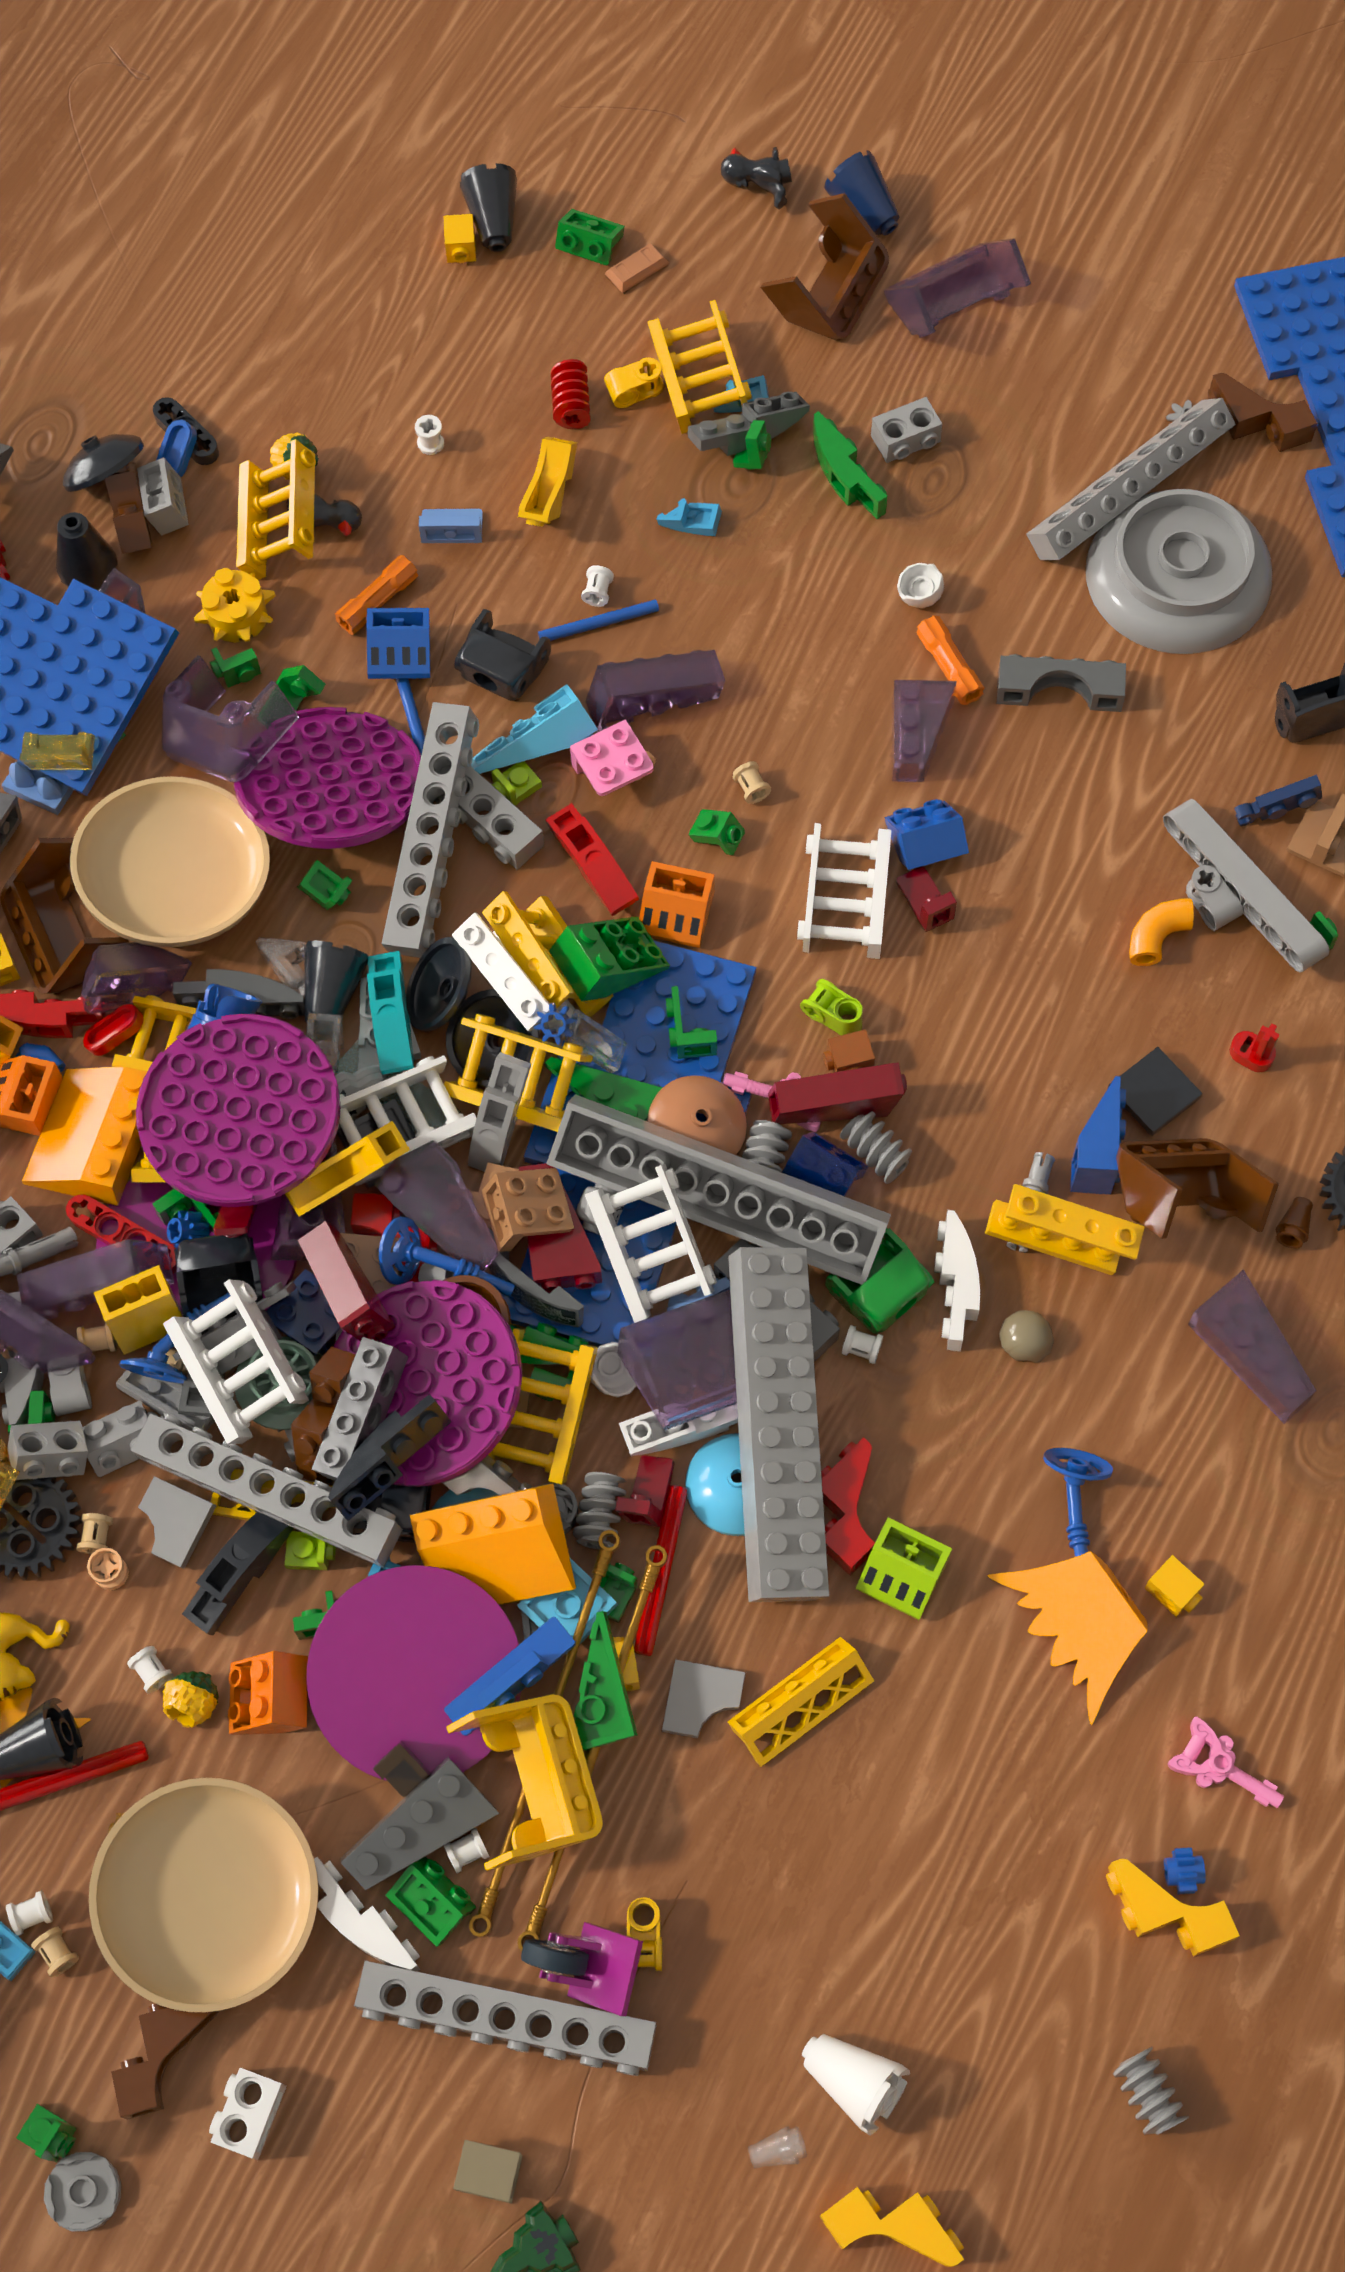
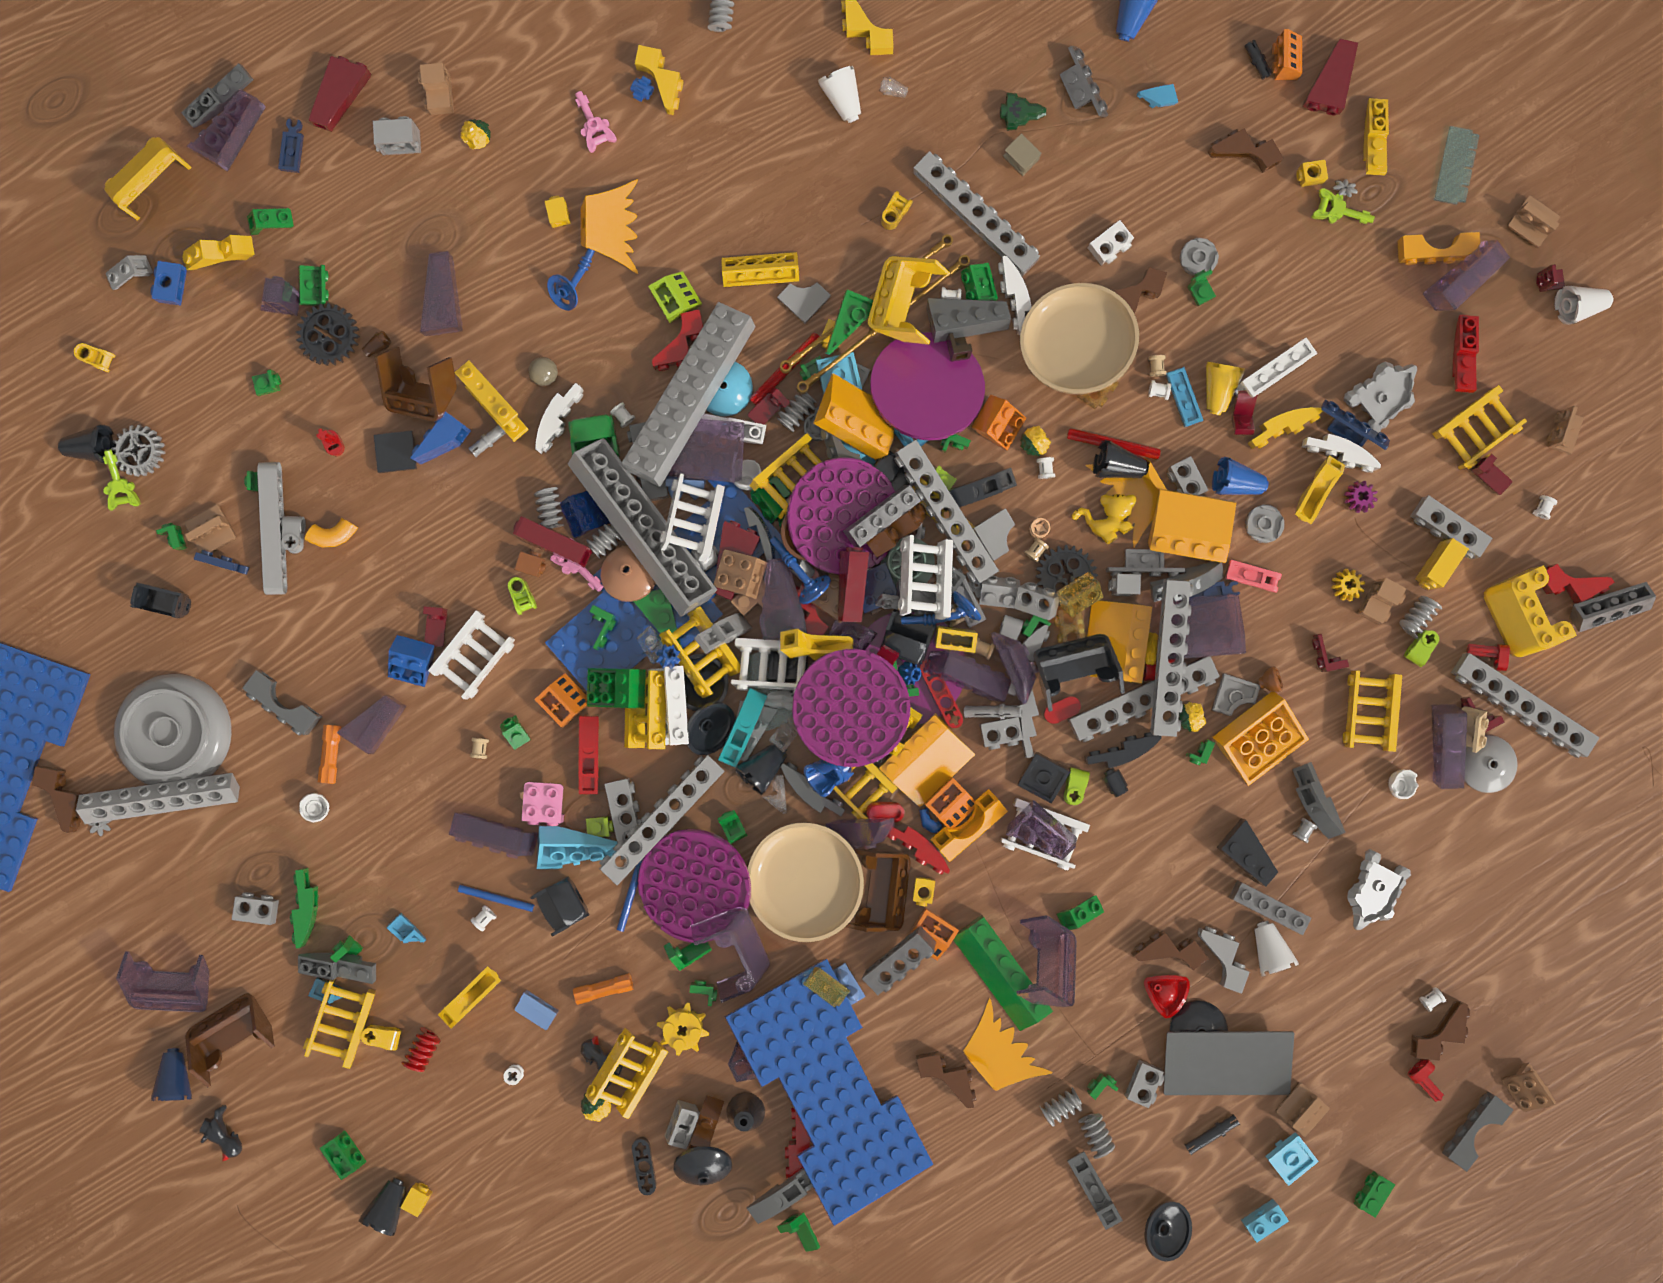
camera: 150 degrees left, 20 degrees up
(178, 445) = (656, 1154): blue tile -> none
(377, 1459) = (891, 482): black slope -> none
(398, 643) = (610, 946): blue slope -> none
(513, 1673) = (885, 353): blue bracket -> none
(597, 1973) = (926, 210): magenta plate -> none
(636, 268) = (330, 1117): nougat tile -> none

